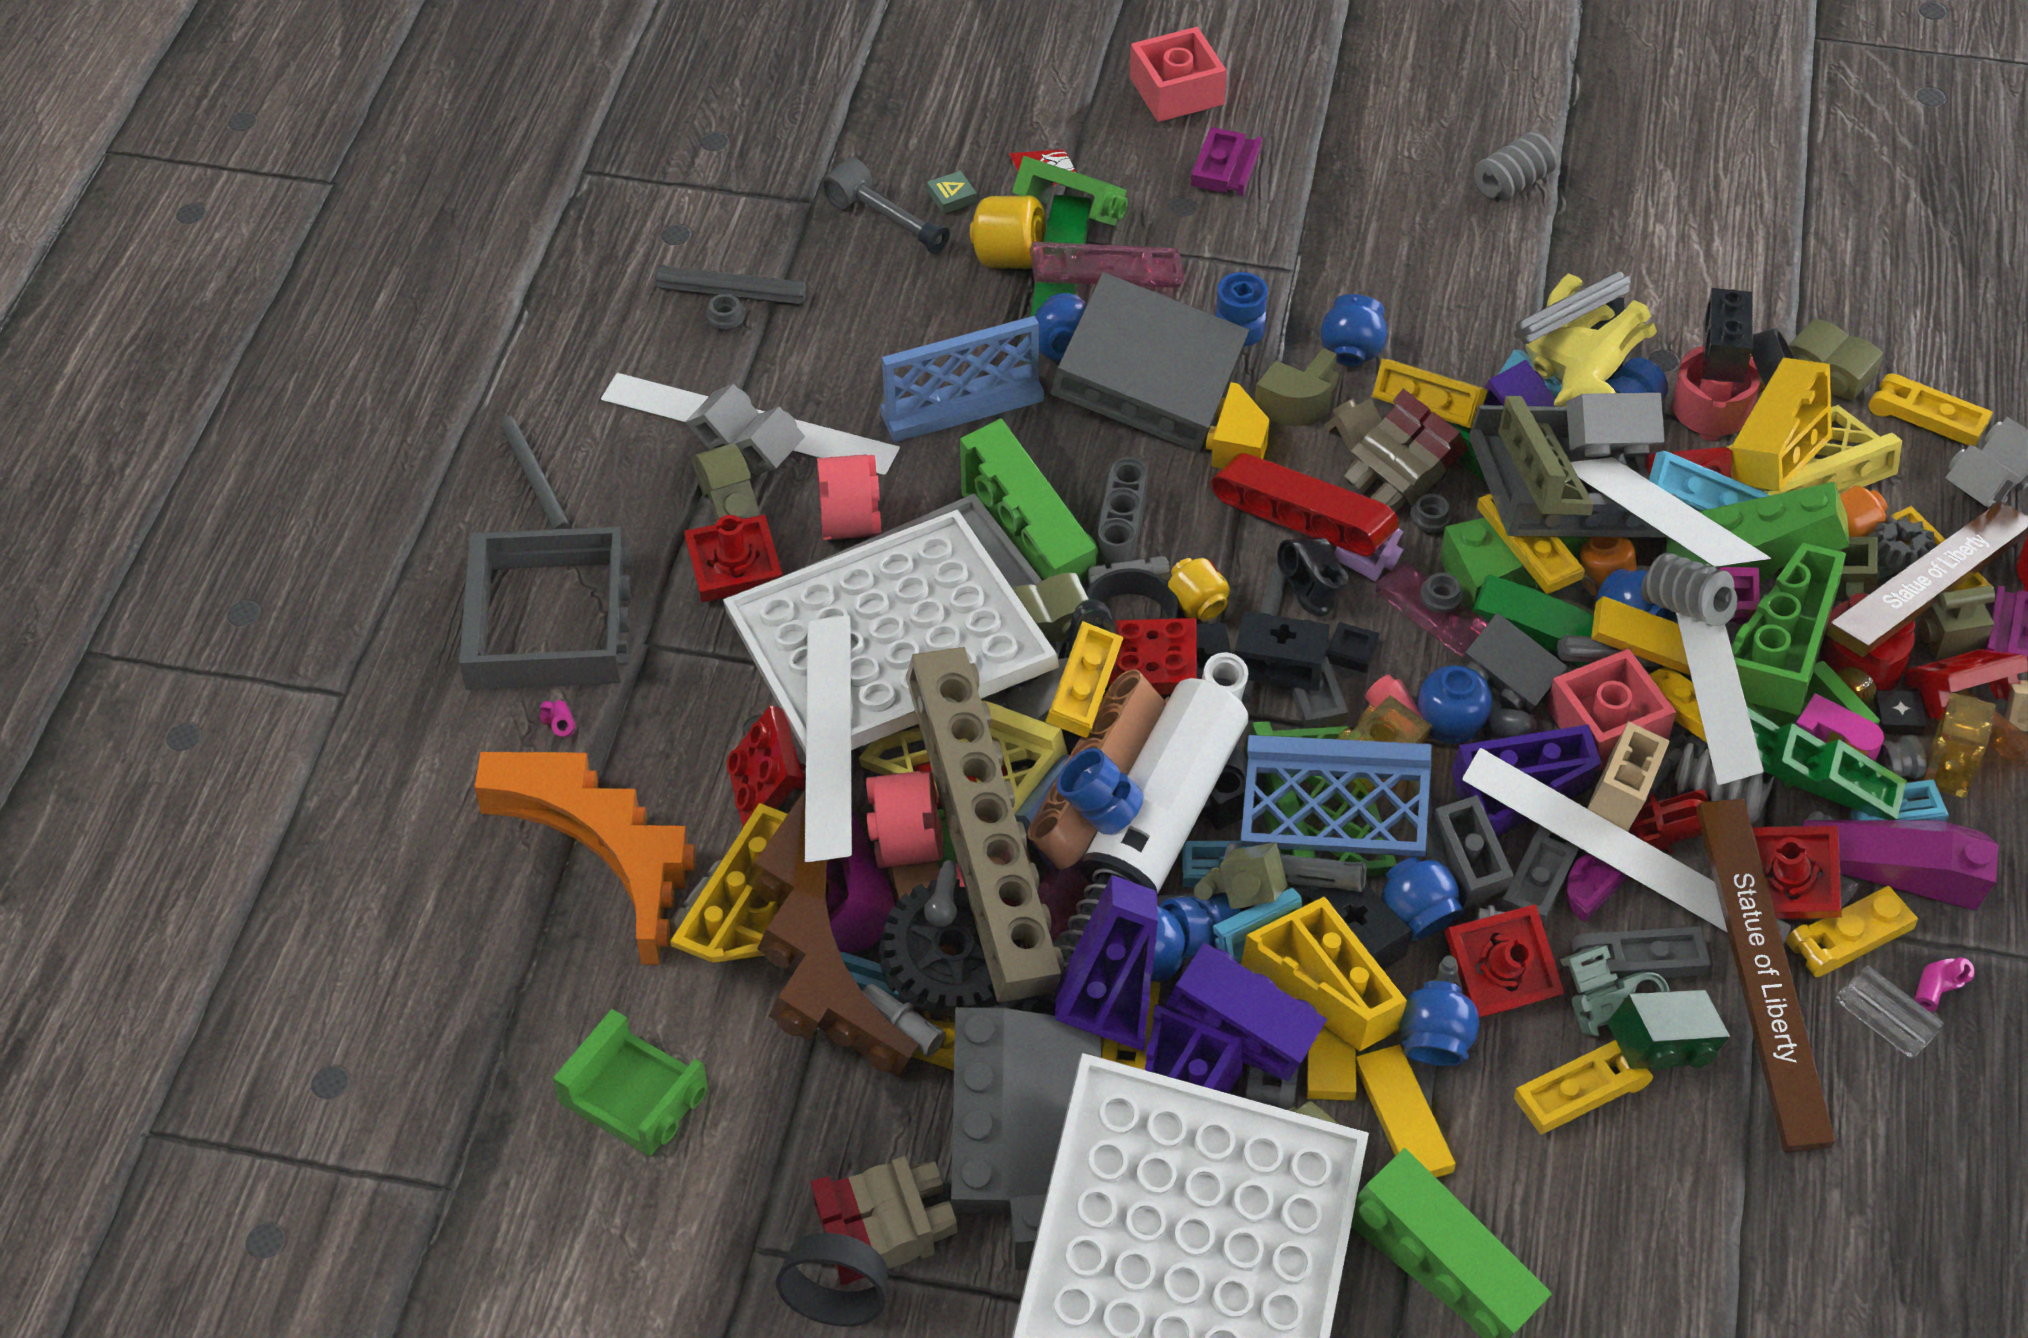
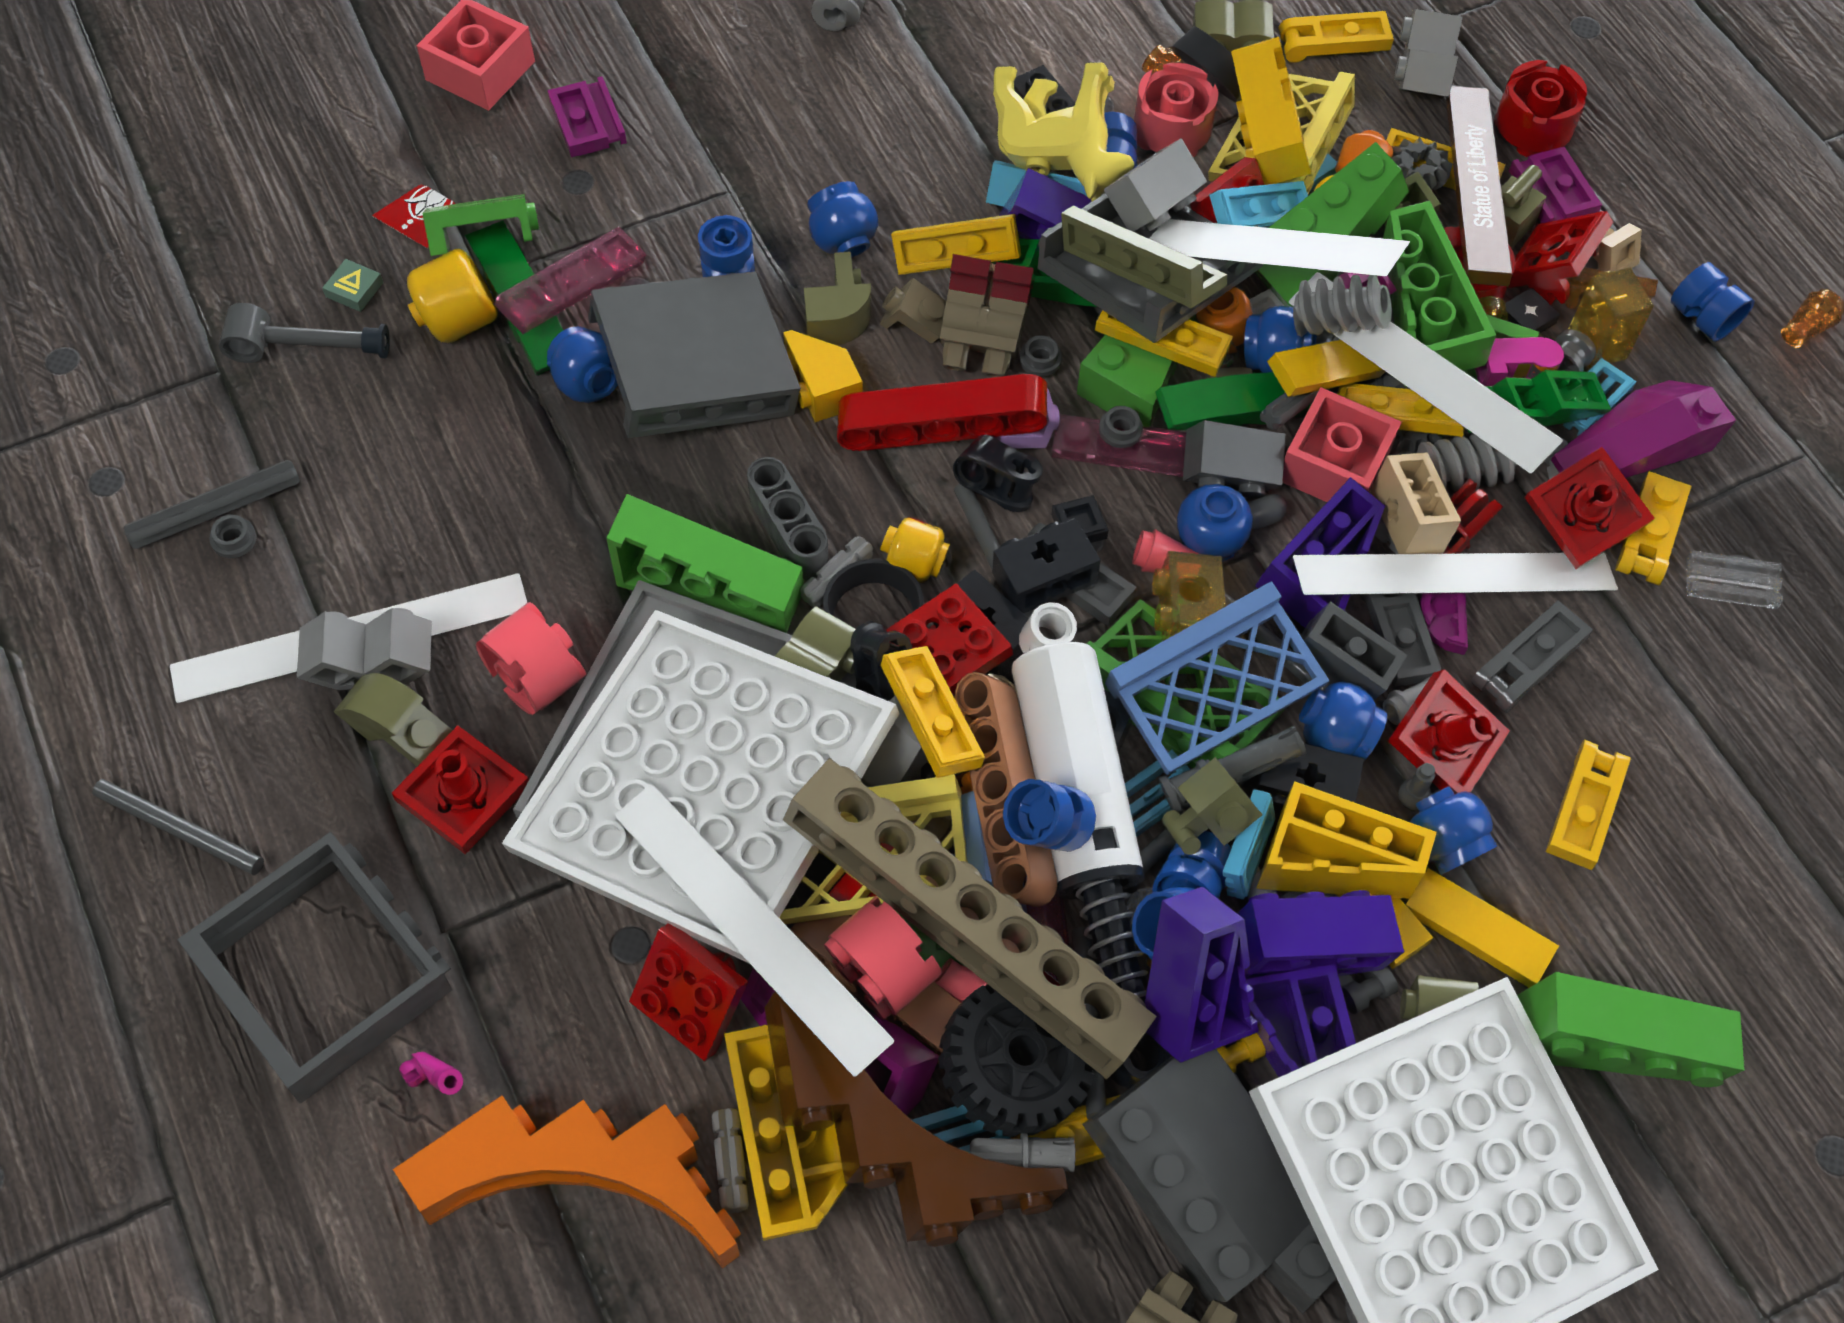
camera: 40 degrees left, 10 degrees up
(940, 908) = (998, 1028): dark grey piece -> none
(968, 397) = (538, 493): medium blue fence -> none
(1572, 307) = (1031, 98): axle -> none
(1600, 991) = (1543, 707): sand green piece -> none
(1668, 1029) = (1620, 712): dark green brick -> none
(1727, 335) = (1168, 54): black brick -> none
(1765, 977) = (1641, 611): reddish brown tile -> none
(1940, 978) = (1743, 526): dark pink arm -> none

